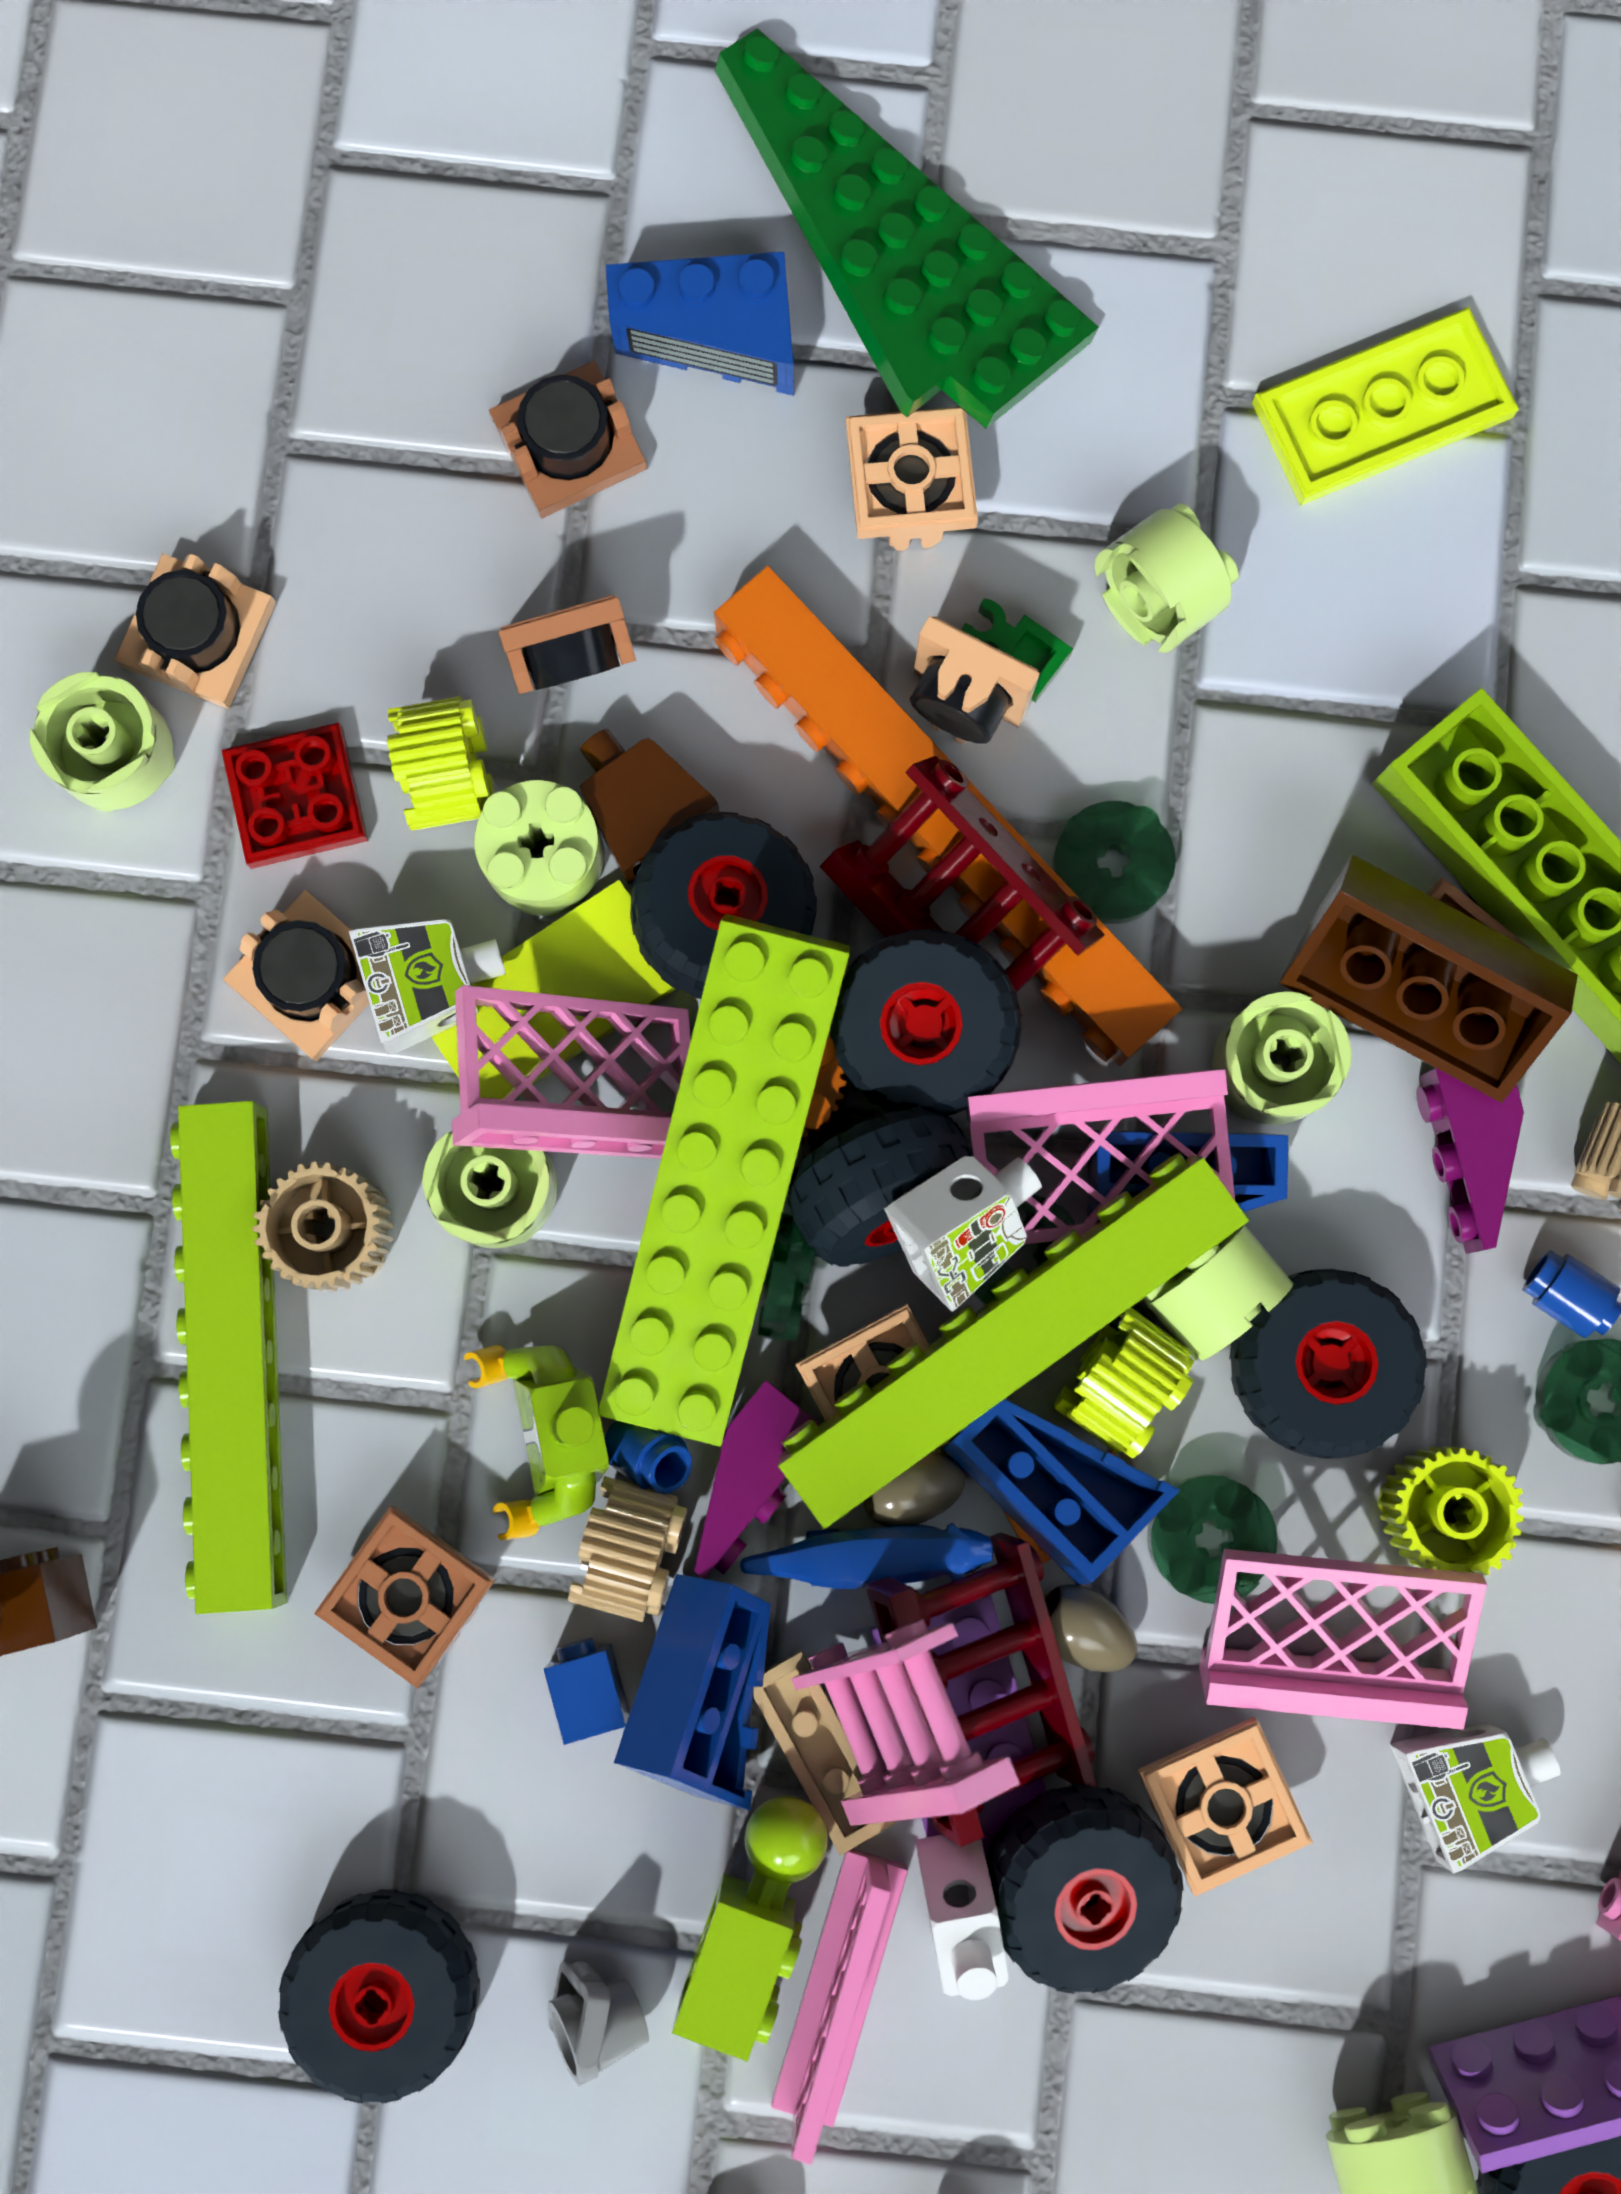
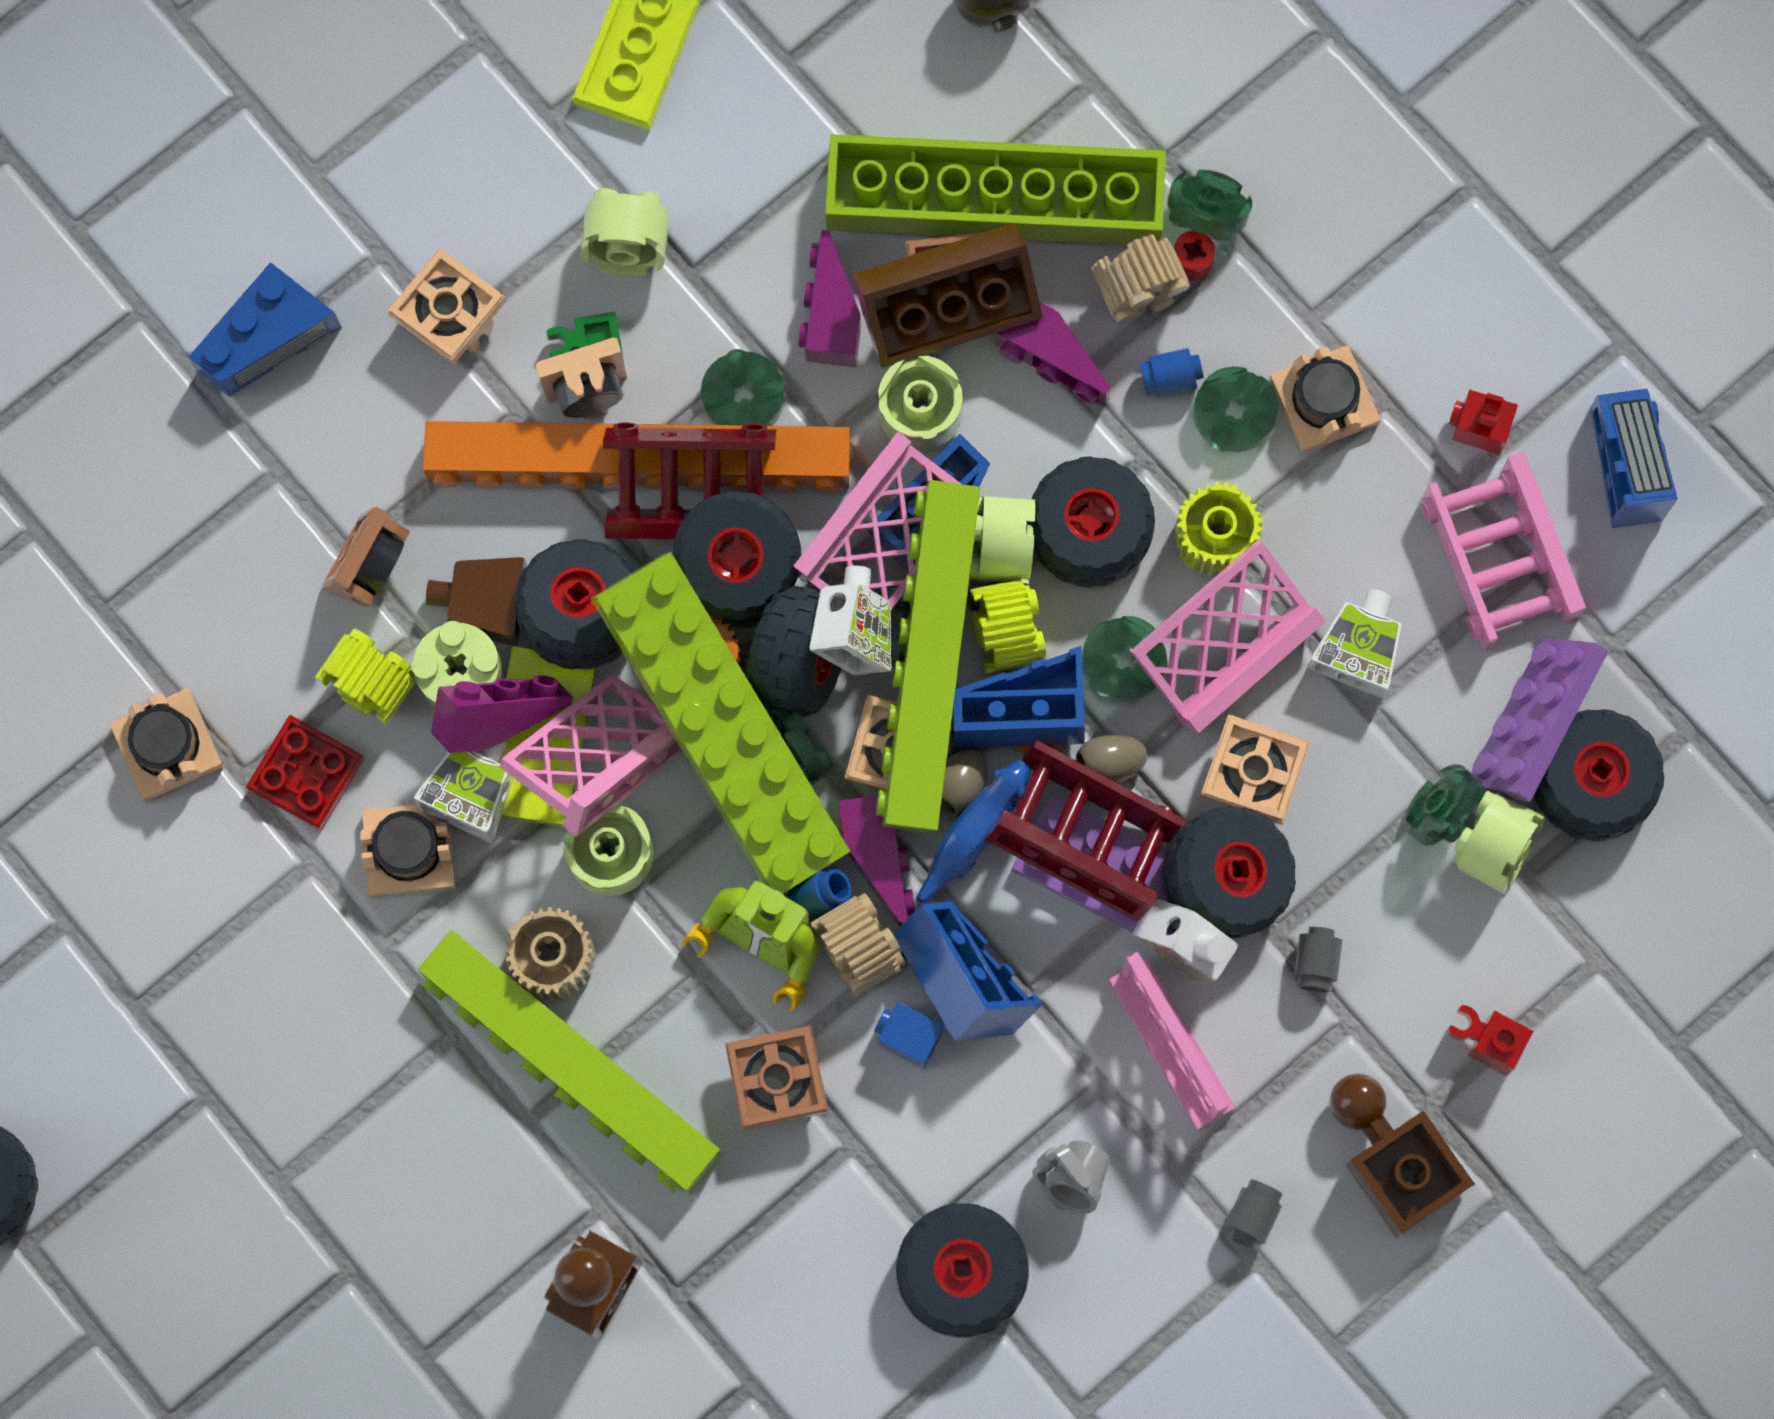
camera: 45 degrees left, 5 degrees down
(68, 745) = (173, 820): yellowish green brick -> none
(517, 927) = (487, 714): none -> magenta slope
(566, 433) = (252, 460): piece -> none
(751, 1933) = (1102, 1053): lime brick -> none
(815, 1747) = (1049, 946): tan plate -> none
(890, 1781) = (1103, 876): bright pink fence -> none
(910, 265) = (336, 205): green wing -> none
(1079, 2069) = (1318, 959): none -> dark grey brick
(1288, 878) = (834, 316): none -> magenta slope
(1382, 2090) = (1442, 808): none -> clear green plate

